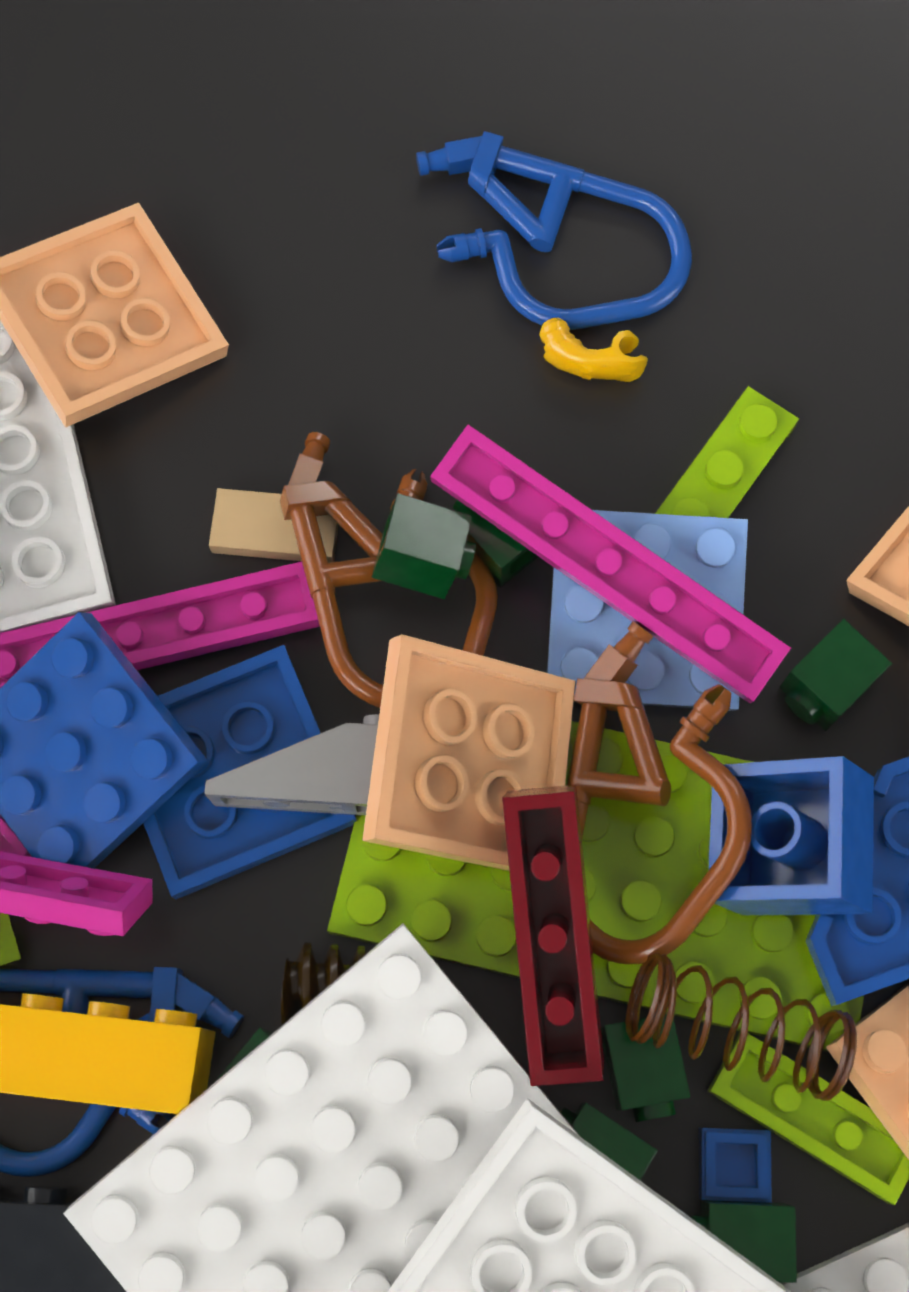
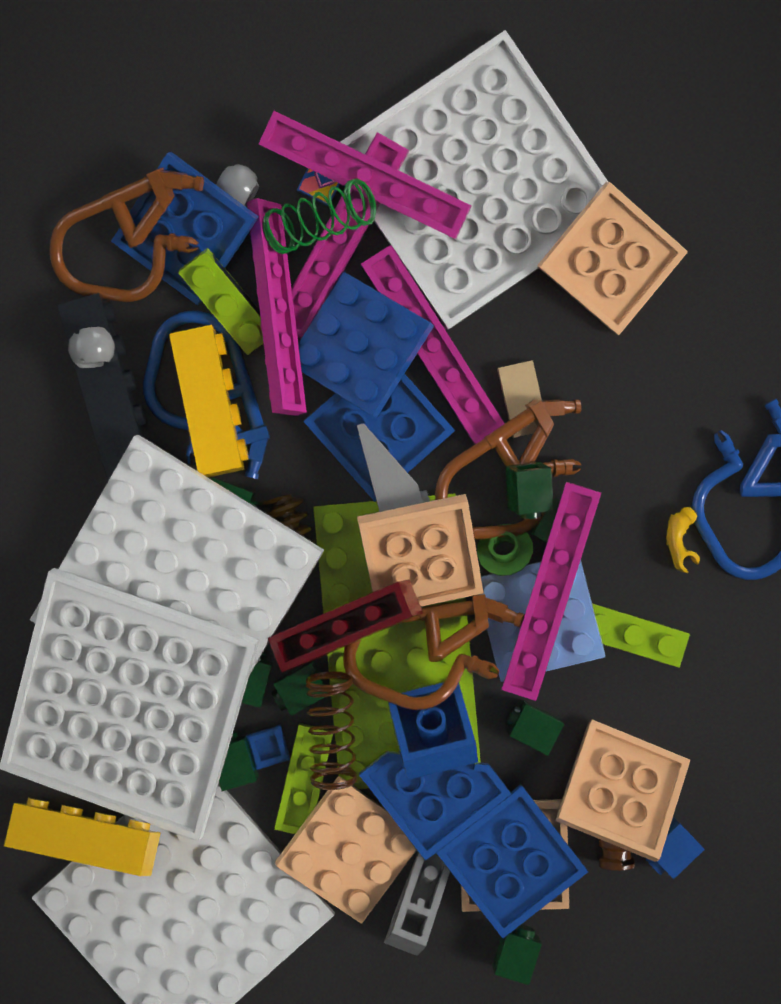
camera: 65 degrees right, 15 degrees up
(538, 629) = (505, 564): none -> bright green piece

